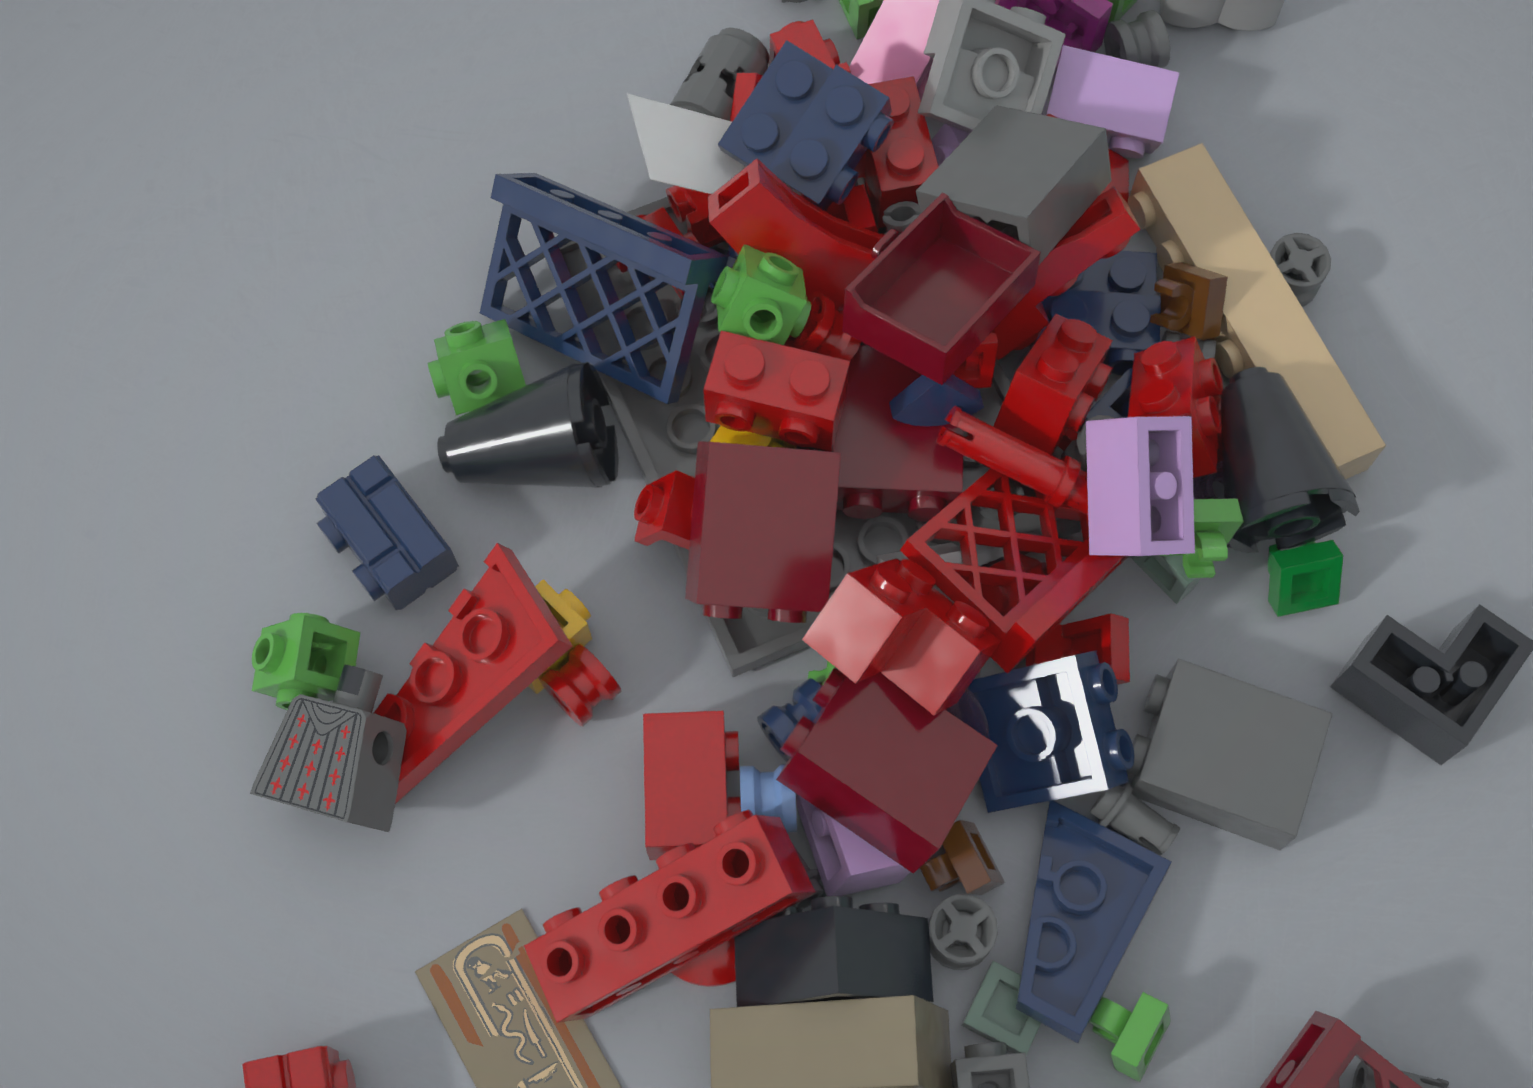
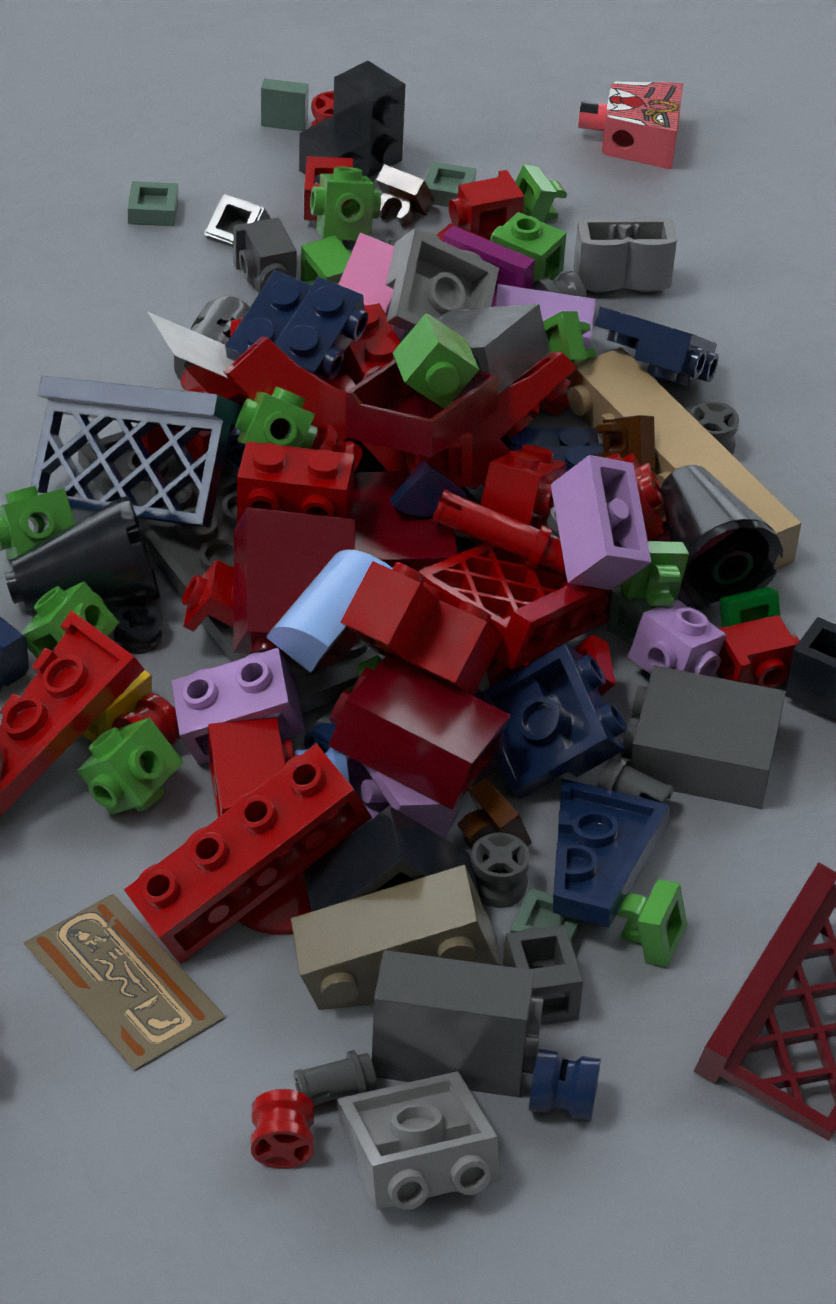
camera: 10 degrees left, 25 degrees down
(504, 516) = (55, 606): none -> bright green brick
(550, 751) = (129, 767): none -> bright green brick
(595, 536) = (138, 640): none -> black bush
(683, 670) = (236, 691): none -> lavender brick
(794, 584) = (314, 619): none -> light blue brick
(963, 238) = (435, 361): none -> bright green brick
(1132, 141) = (565, 335): none -> bright green tile
(1212, 621) = (677, 640): none -> lavender brick
(1263, 149) = (668, 351): none -> dark blue plate
(1304, 636) = (757, 652): none -> red brick

